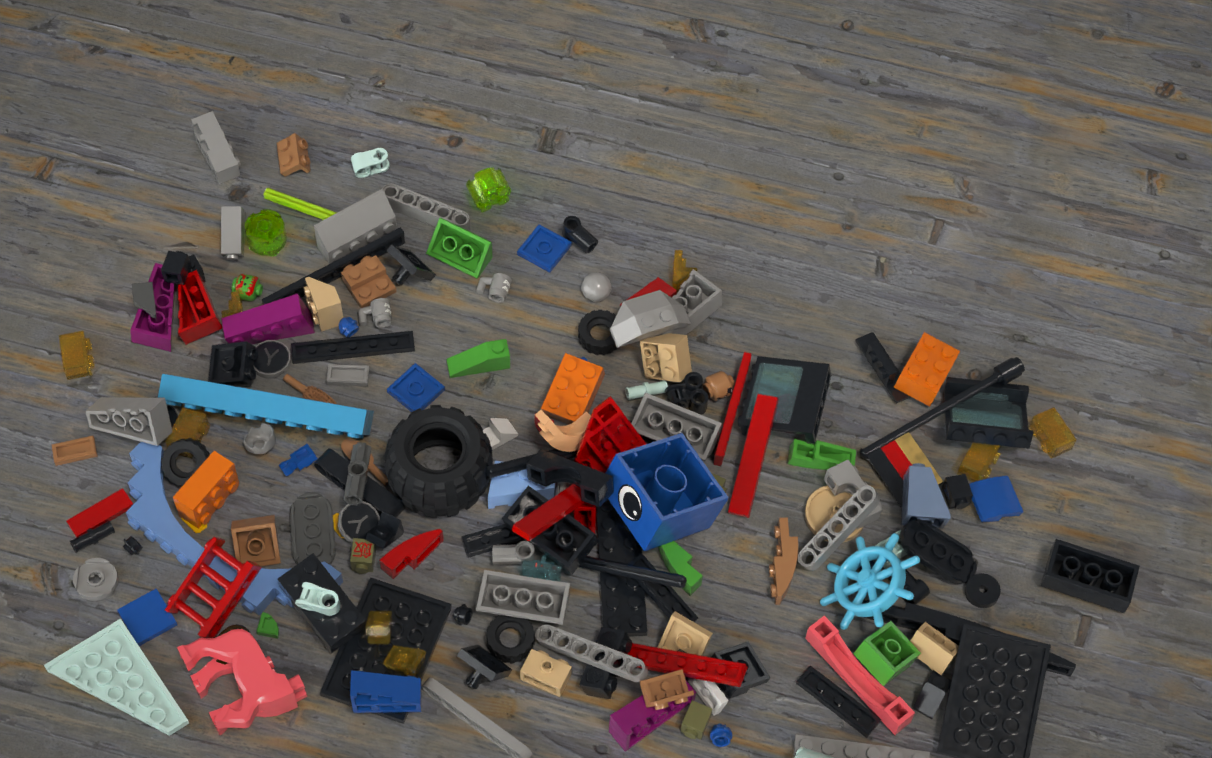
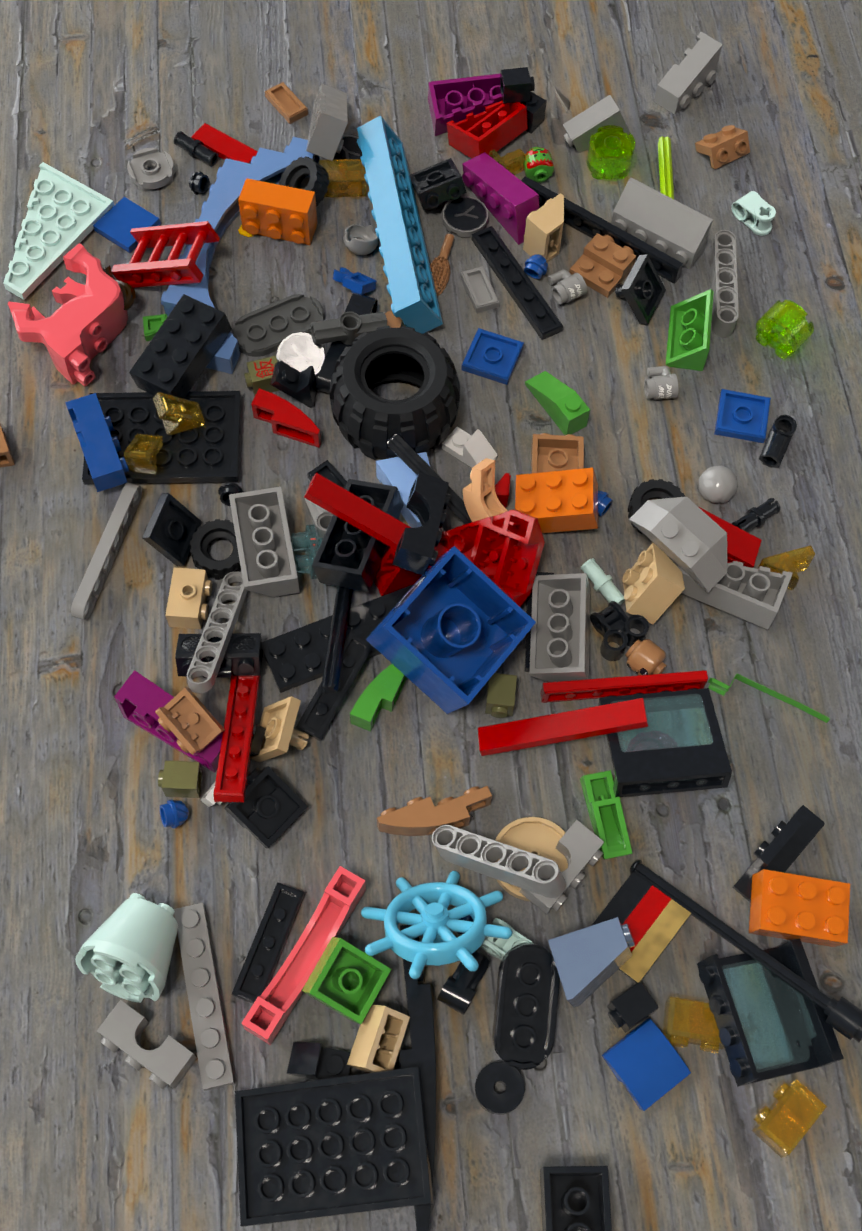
camera: 70 degrees right, 5 degrees up
(75, 355) = (388, 61): clear yellow brick -> none
(144, 297) = (469, 76): dark grey tile -> none
(256, 540) = (243, 277): medium nougat slope -> none
(314, 597) = (167, 335): light aqua piece -> none
(532, 378) = (556, 452): none -> medium nougat plate
(632, 274) = (756, 516): none -> black pin
(753, 351) = (722, 688): none -> bright green piece

